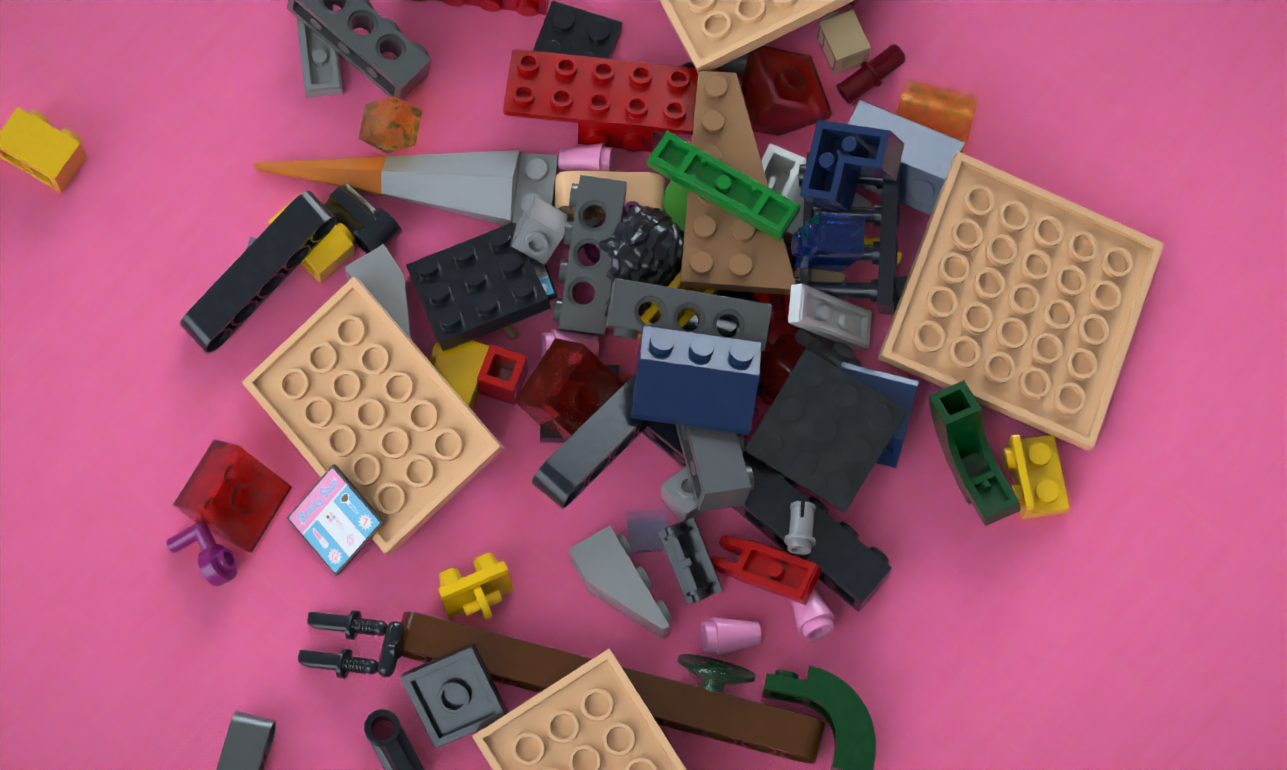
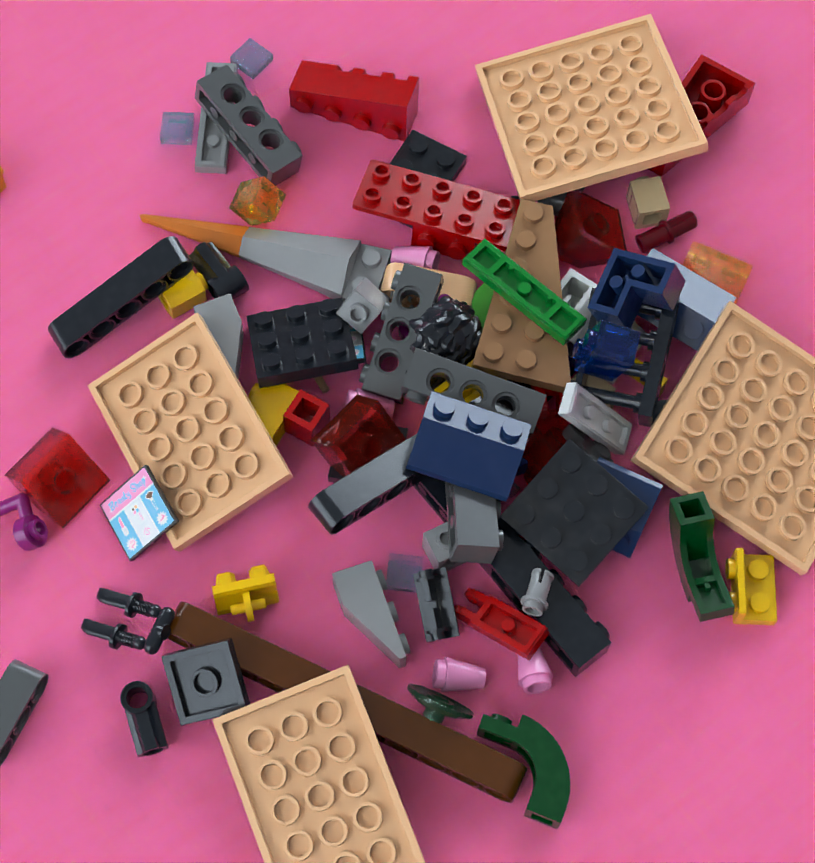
camera: 10 degrees right, 5 degrees down
(273, 48) = (177, 128): none -> clear light blue tile

